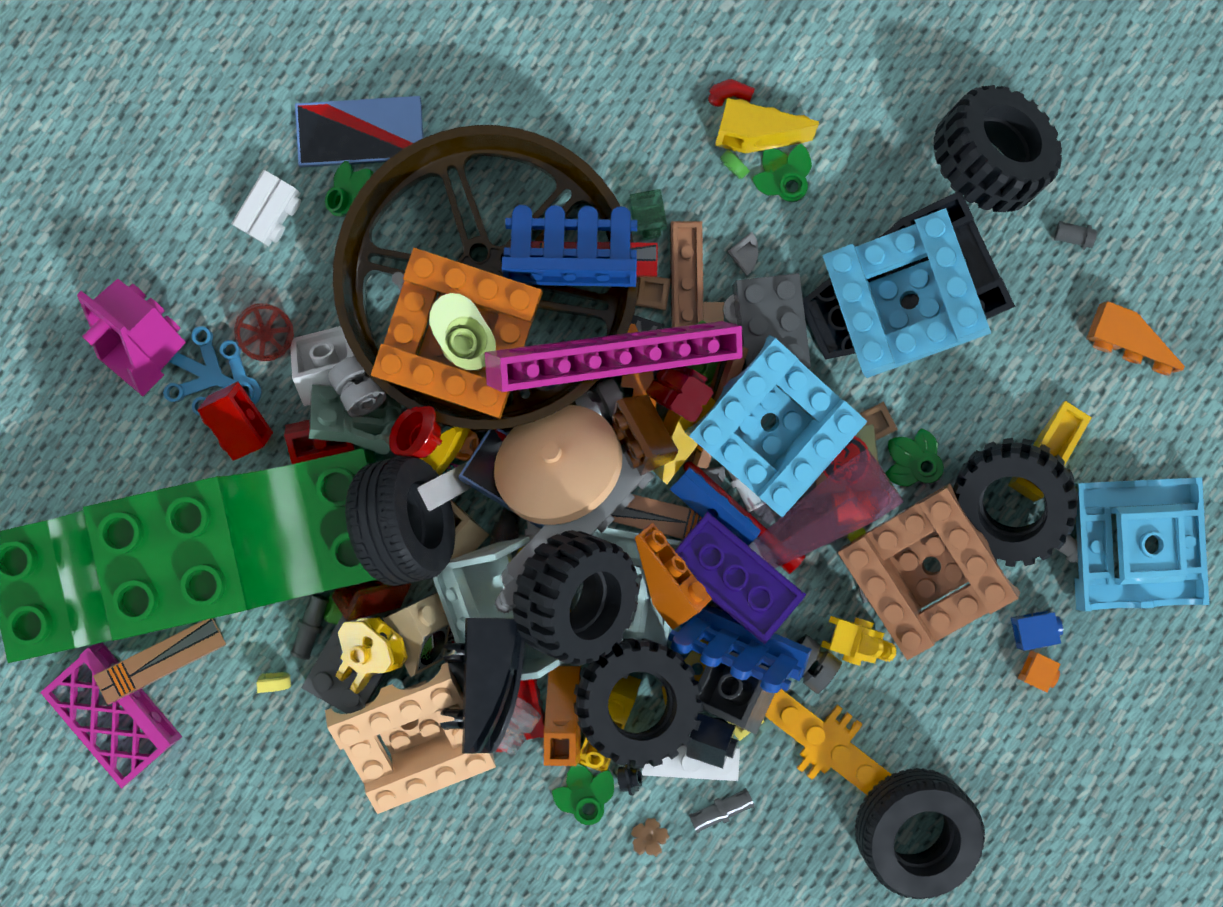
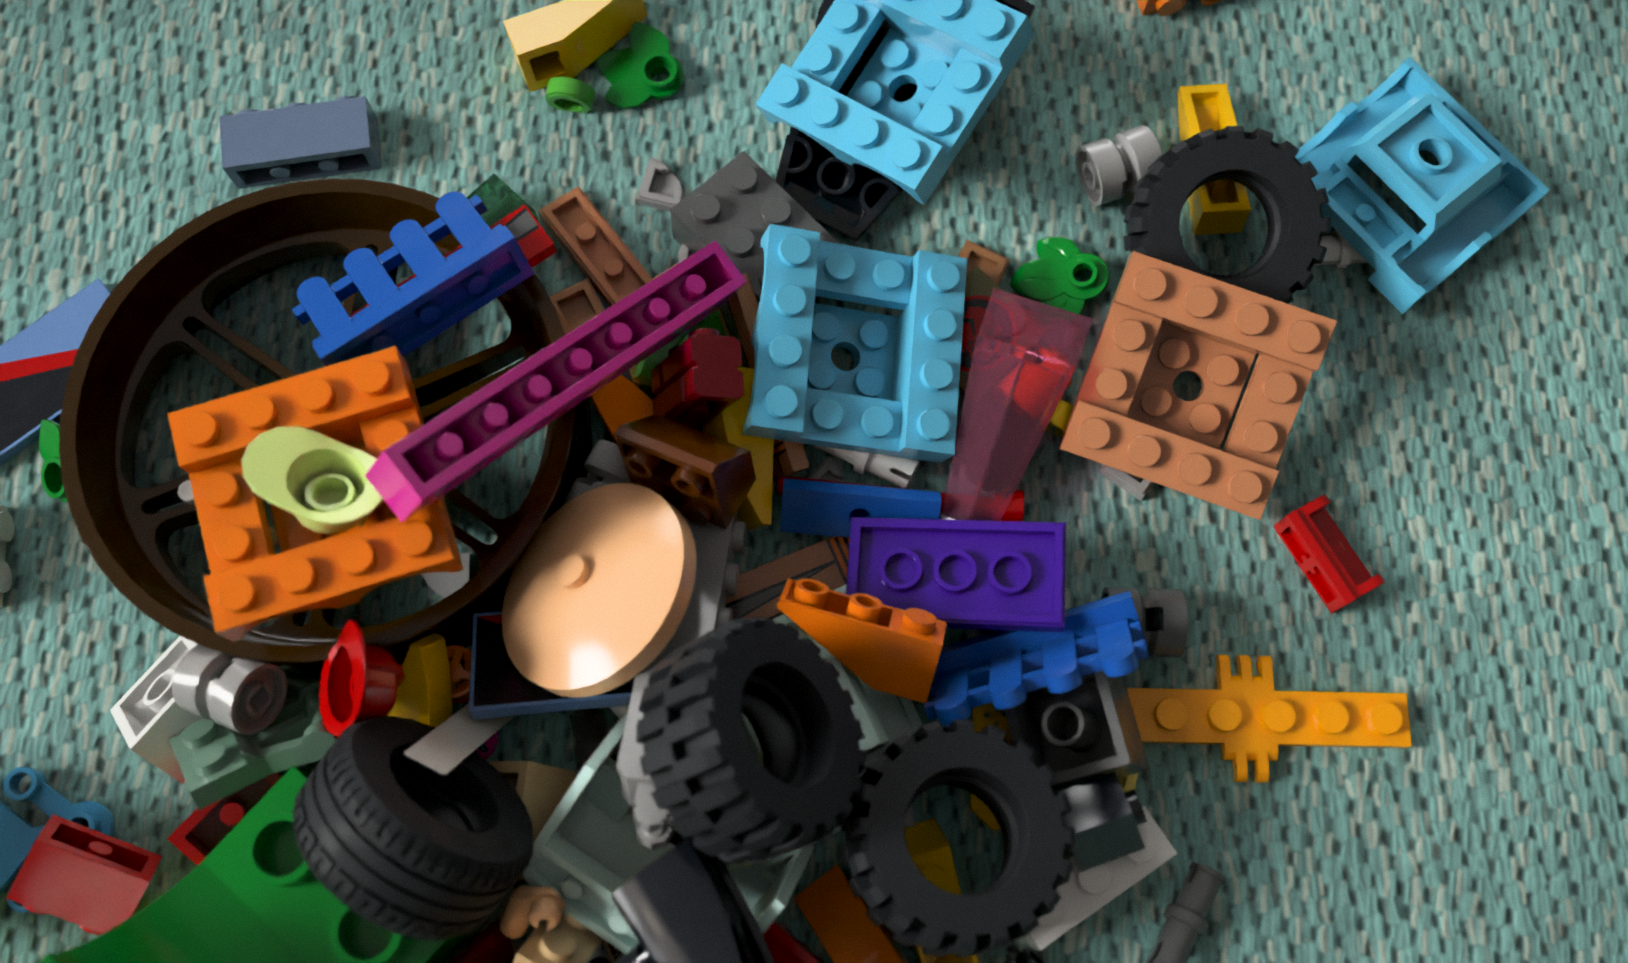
camera: 40 degrees left, 15 degrees down
(263, 332) = (55, 721): clear red wheel -> none
(430, 588) = (529, 906): none -> light nougat arm
(573, 89) = (300, 142): none -> sand blue brick
(728, 89) = (493, 28): red arm -> none
(859, 642) = (1181, 542): yellow hinge -> none
(931, 699) = (1325, 555): none -> red hinge
(941, 865) = (1533, 726): black tyre -> none
(994, 421) = (1117, 165): none -> light grey wheel
(1037, 630) = (1379, 372): blue brick -> none
(1040, 671) = (1427, 419): orange plate -> none

